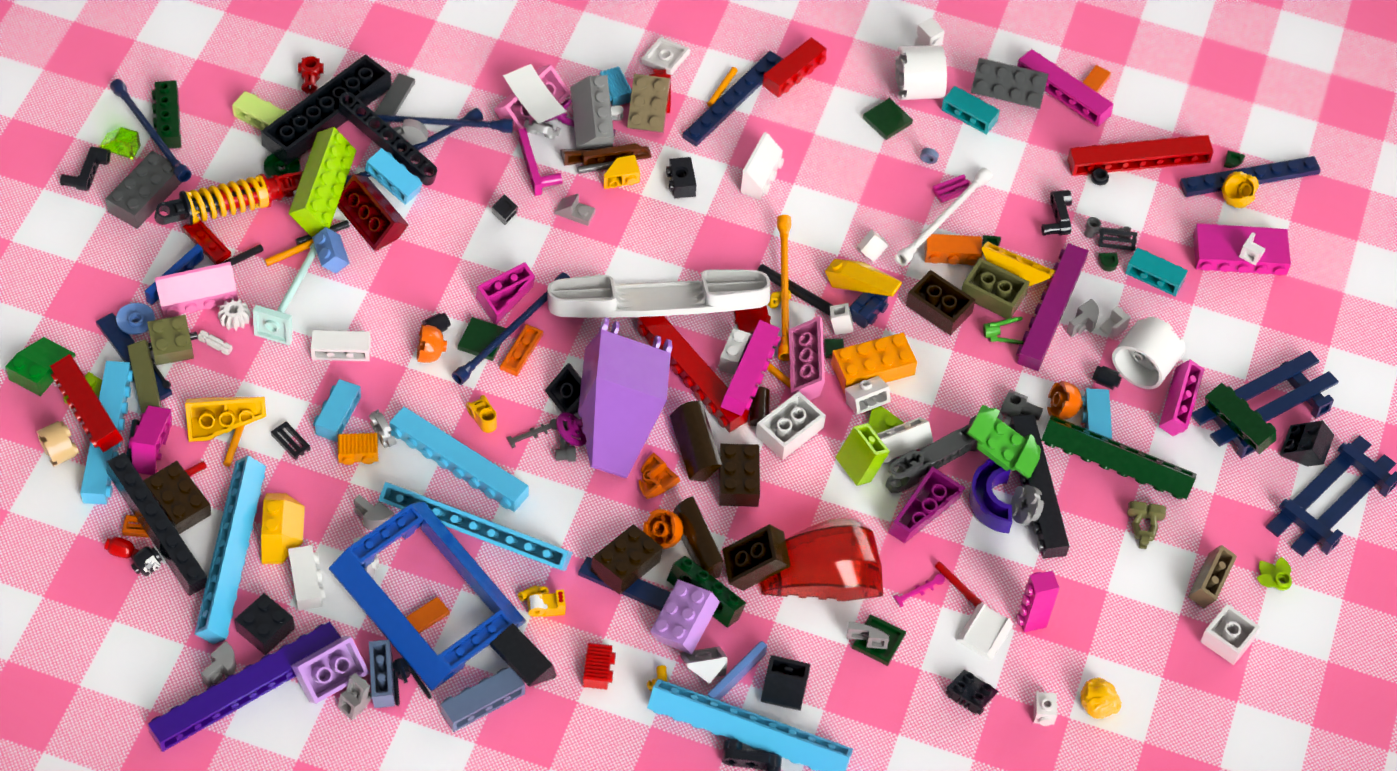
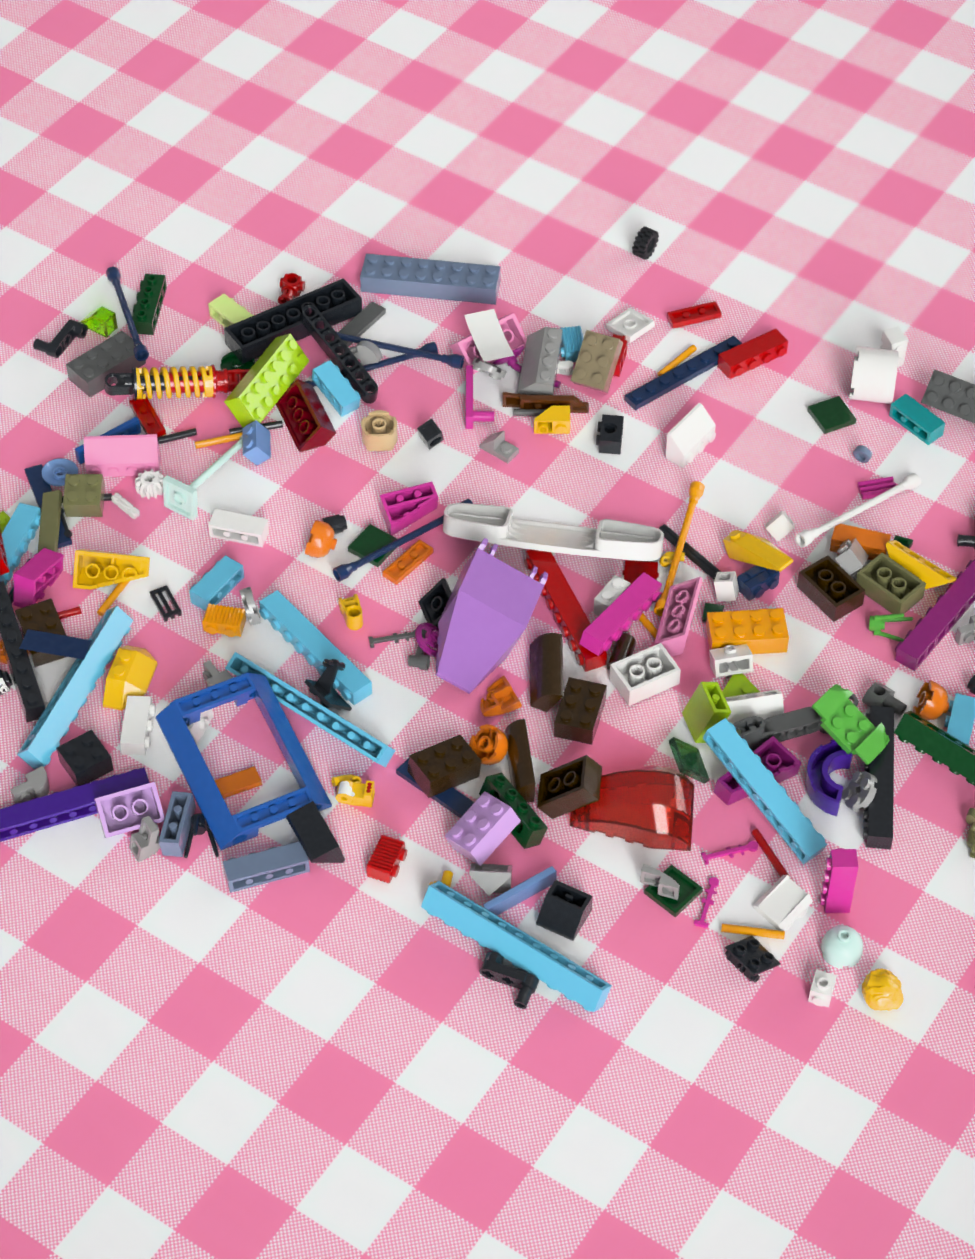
camera: 20 degrees right, 5 degrees down
(198, 509) = (55, 644): none -> dark blue sticker
(451, 38) = (430, 279): none -> sand blue brick
(452, 215) = (379, 431): none -> tan brick
(483, 501) = (324, 686): none -> black plate
(725, 34) = (694, 314): none -> red plate
(858, 505) = (688, 760): none -> clear green plate
(914, 624) = (713, 883): none -> dark pink piece
(941, 524) = (764, 791): none -> medium azure brick
(952, 266) = (851, 556): none -> light grey brick
(964, 665) = (753, 931): none -> light orange bar
(1050, 663) = (842, 946): none -> light aqua cylinder

